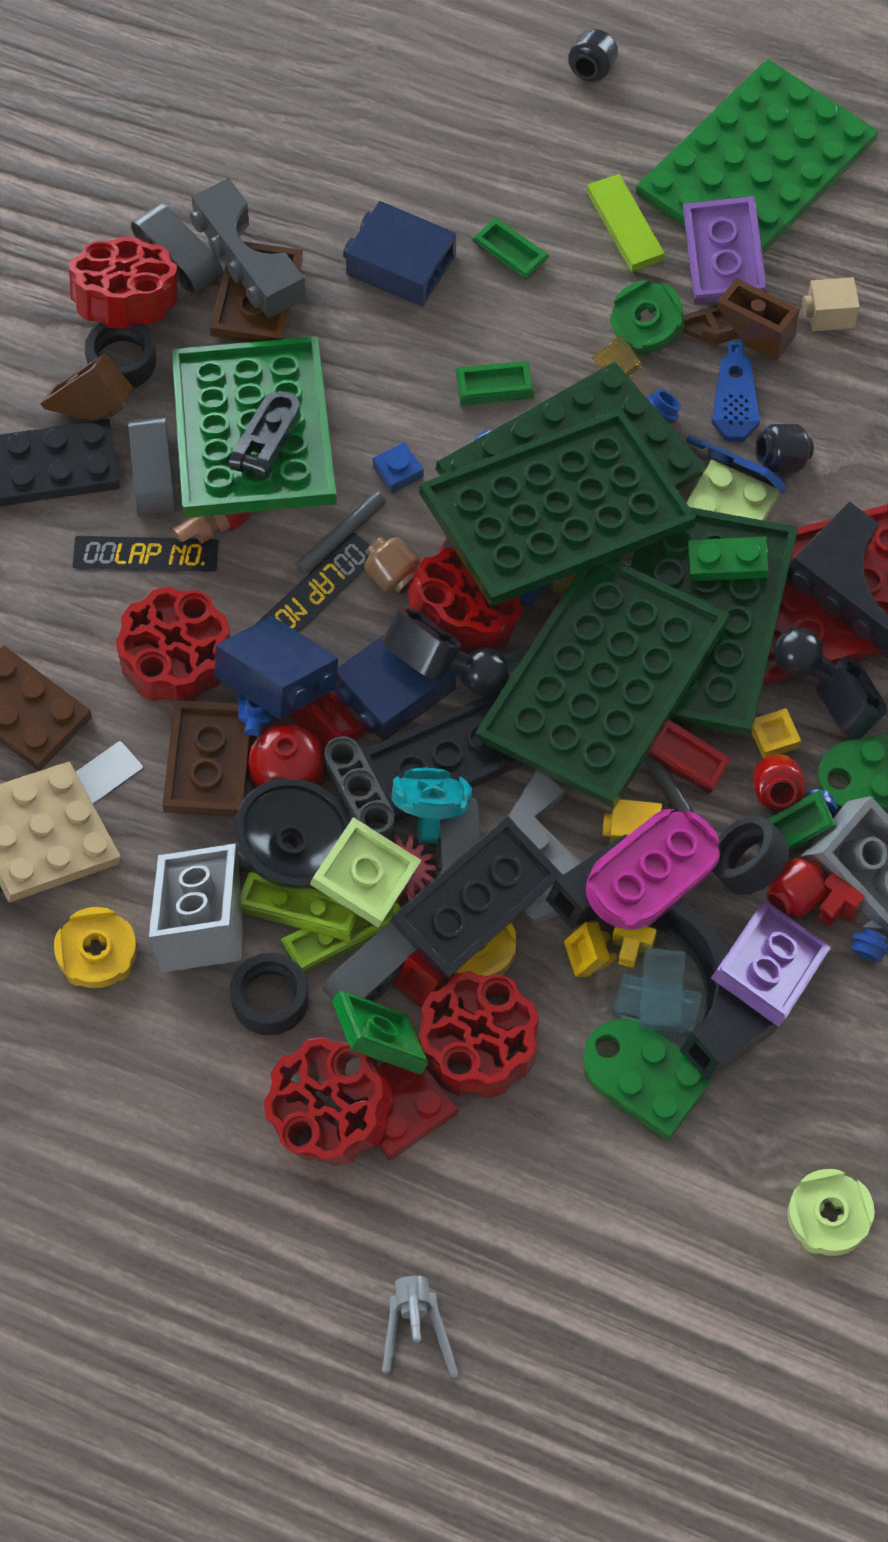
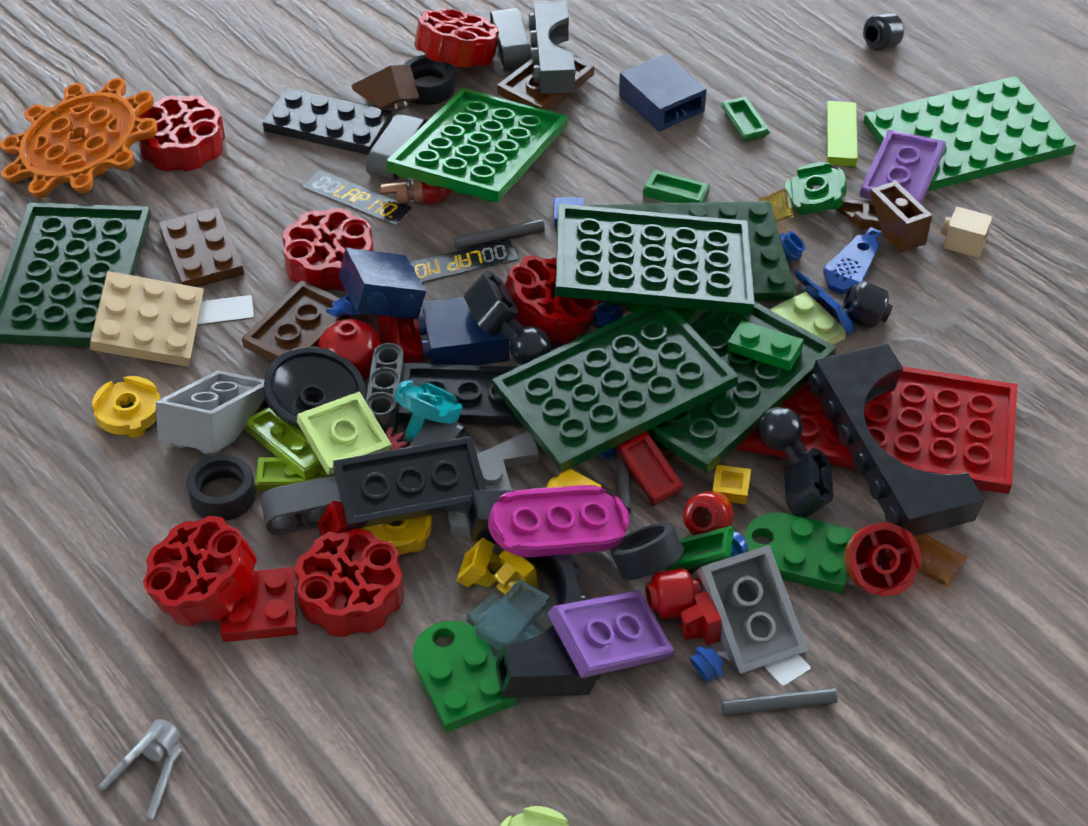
camera: 30 degrees right, 15 degrees down
(266, 434) = (476, 142): black plate -> none
(379, 1032) = (269, 538): green plate -> none
(391, 564) = (511, 254): medium nougat head -> none

